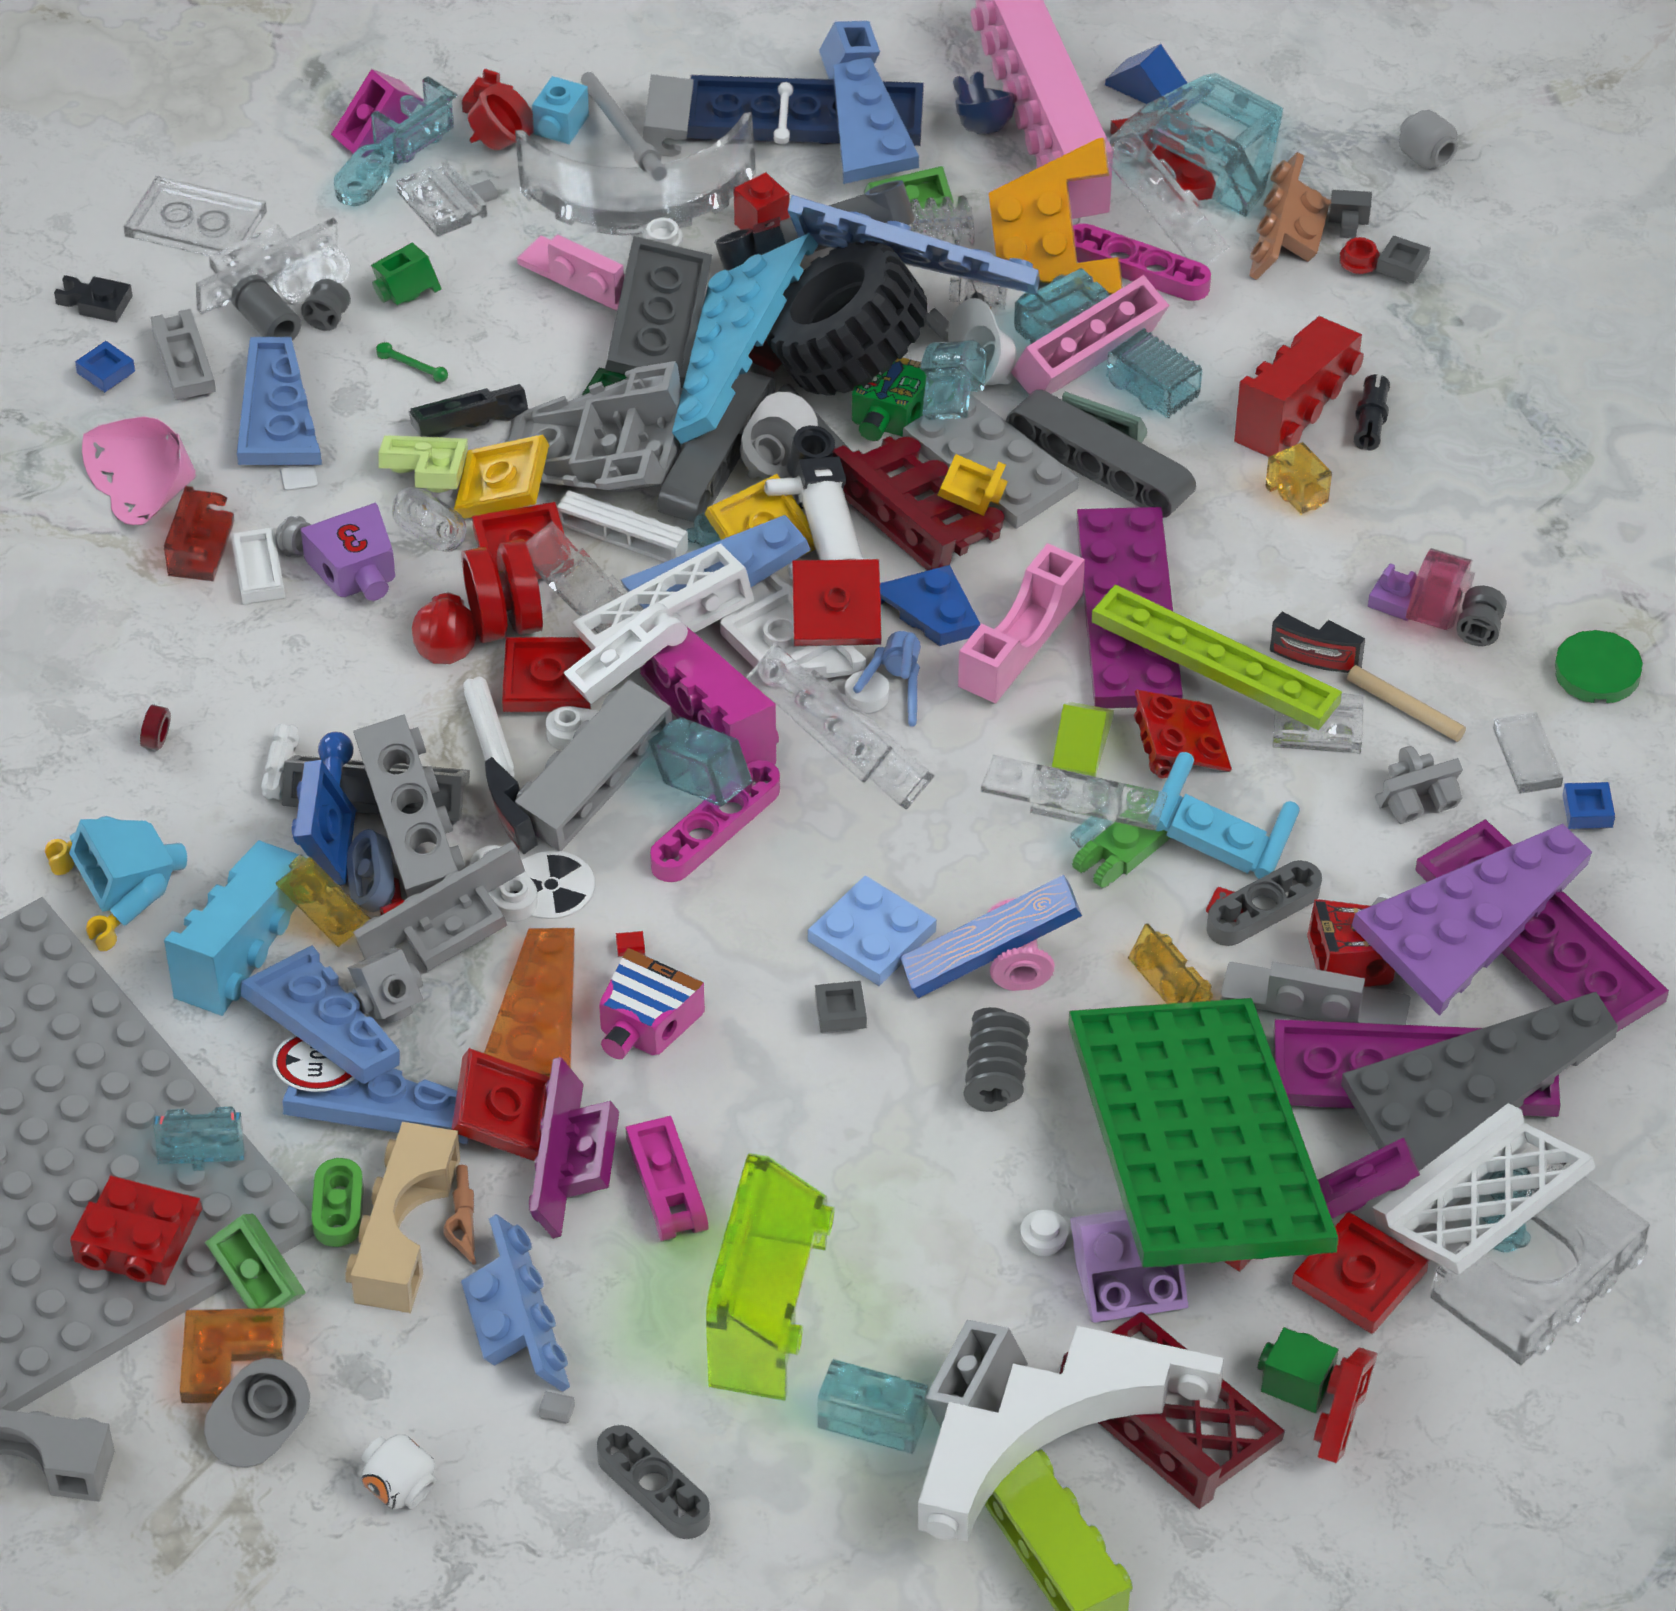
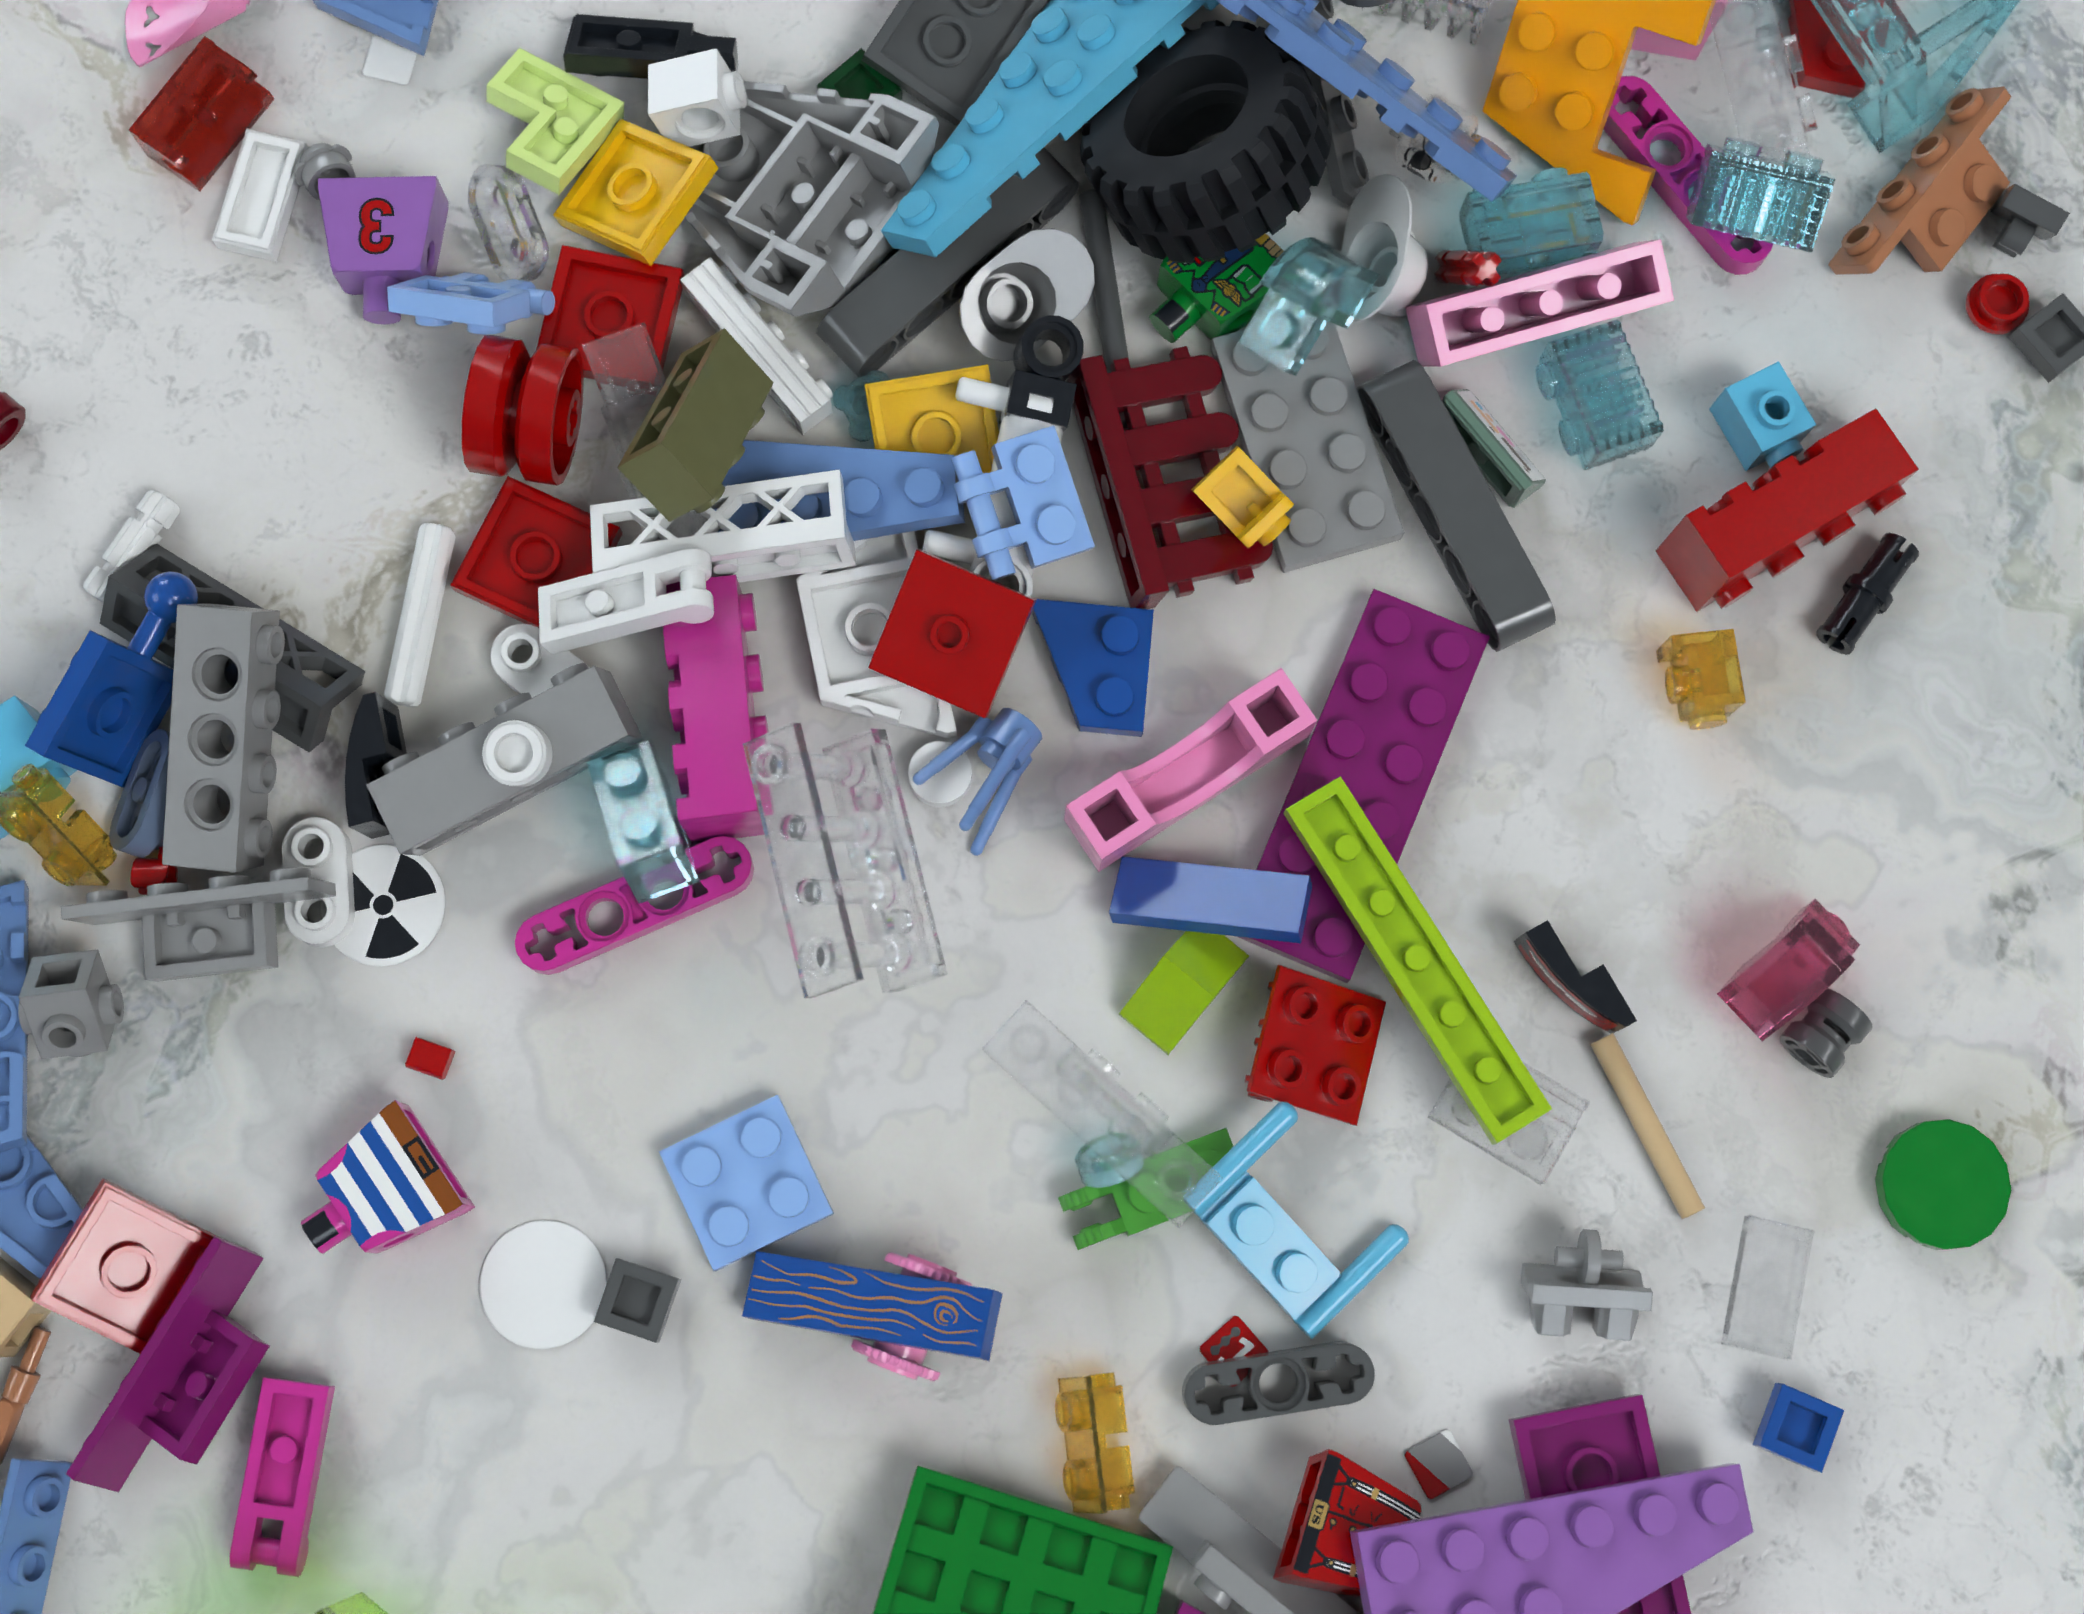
camera: 20 degrees right, 30 degrees up
(433, 551) = (468, 300): none -> light blue plate
(444, 629) = (429, 420): red piece -> none
(514, 414) = (695, 98): none -> white brick
(538, 1003) = (249, 1130): clear orange wing -> none
(606, 739) = (517, 753): none -> white tile
(620, 552) = (697, 427): none -> olive brick
(772, 1032) = (542, 1284): none -> white sticker
(850, 513) = (1040, 497): none -> light blue plate
(996, 1059) = (789, 1494): dark grey piece -> none
(1042, 324) = (1468, 267): none -> red axle
(1073, 679) = (1211, 899): none -> tile
(1188, 240) = (1761, 195): none -> clear light blue brick
(1251, 345) = (1763, 417): none -> medium azure brick
(1392, 592) = (1734, 929): medium lavender tile -> none

